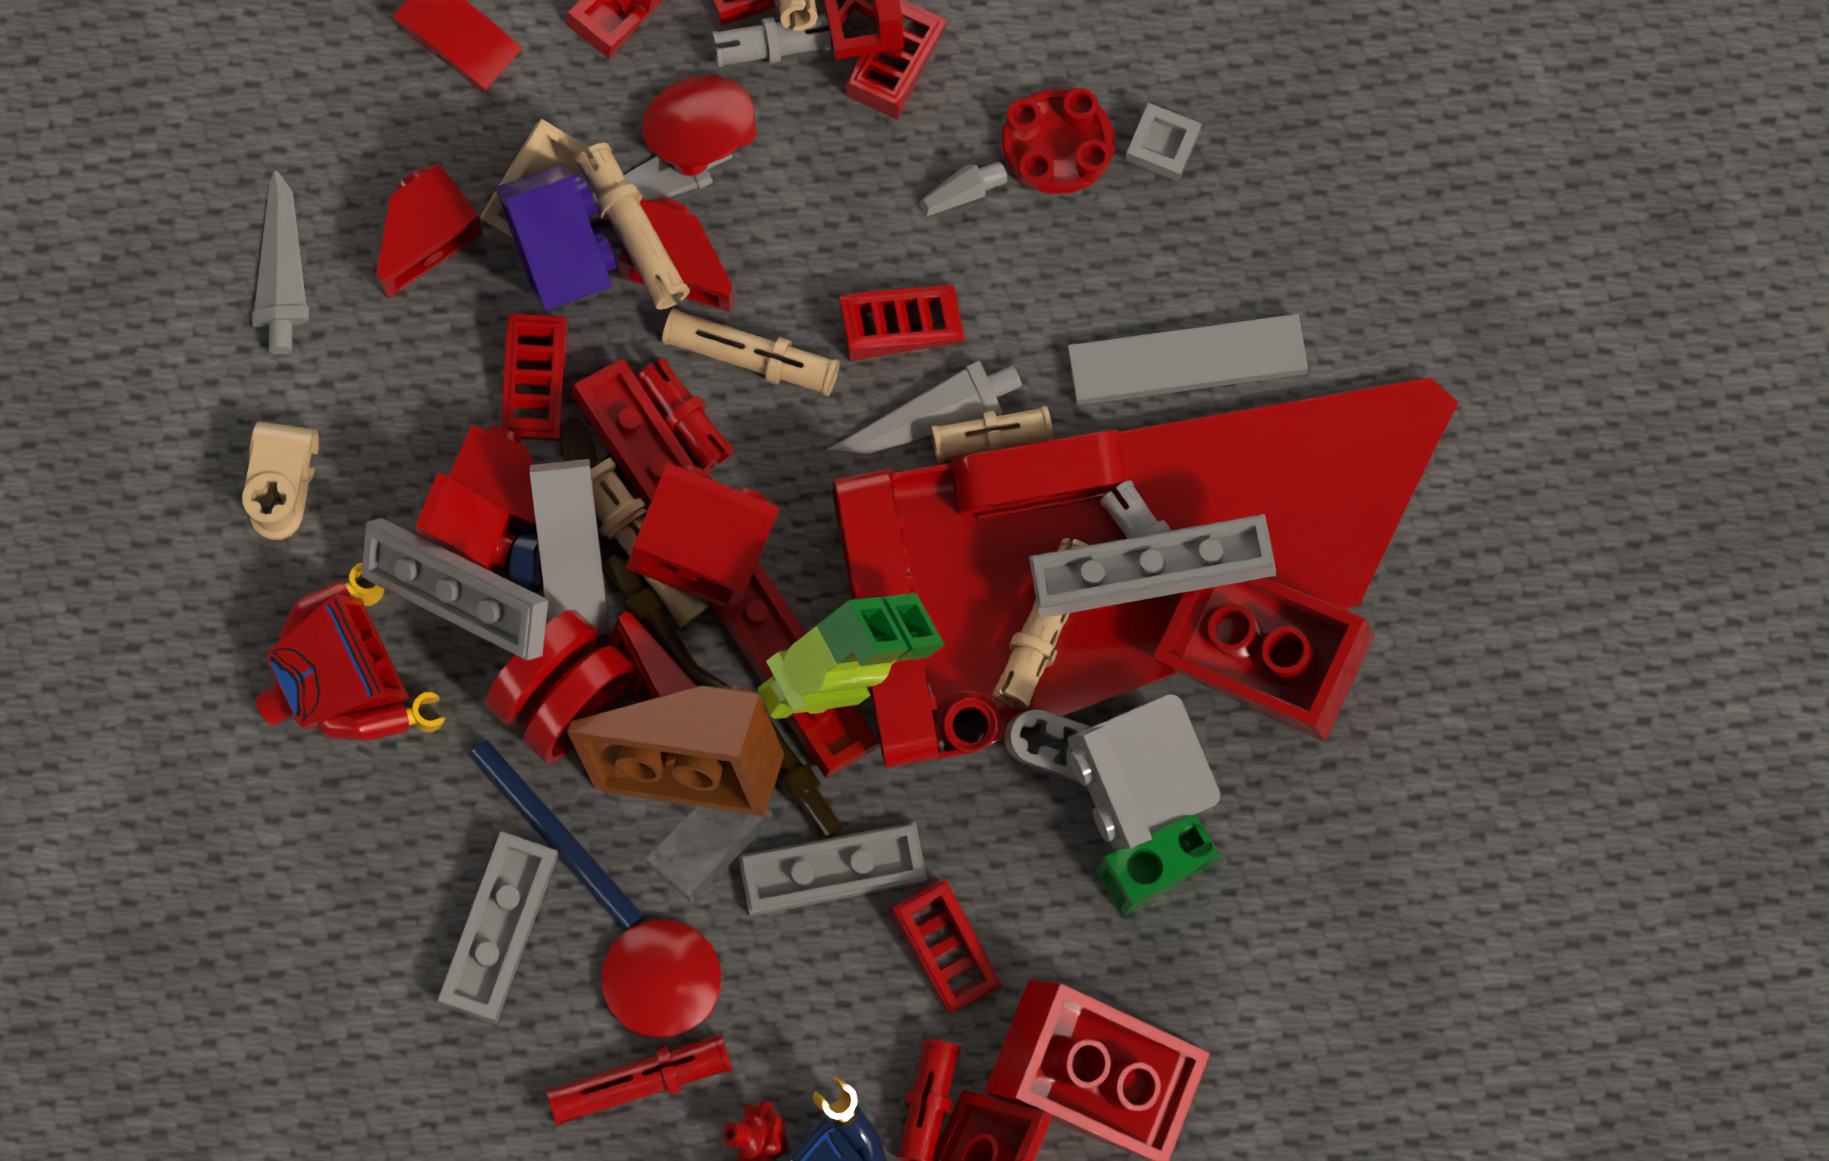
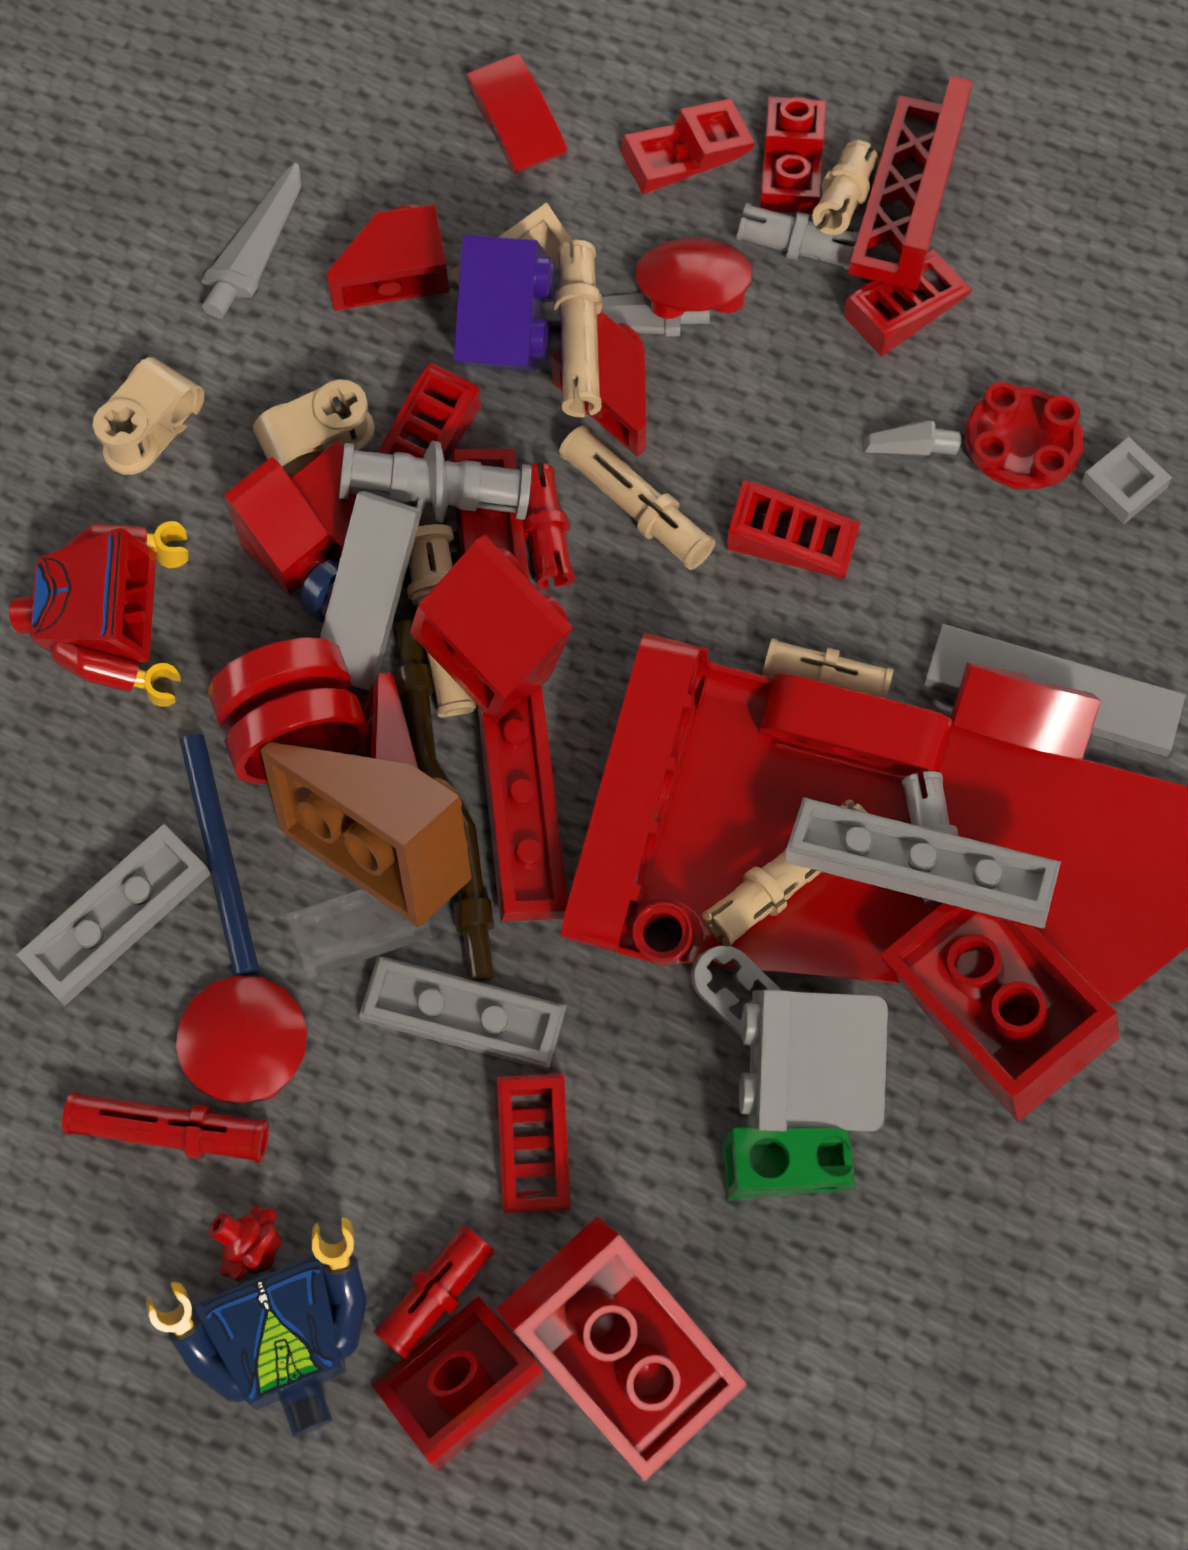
camera: 30 degrees right, 5 degrees down
(434, 428) = (311, 424): none -> tan piece
(455, 589) = (231, 571): light grey tile -> none
(579, 424) = (435, 481): none -> light grey piece
(848, 654) = (568, 798): hips -> none
(950, 402) = (806, 626): light grey bar -> none
(1174, 395) = (1024, 711): none -> red slope

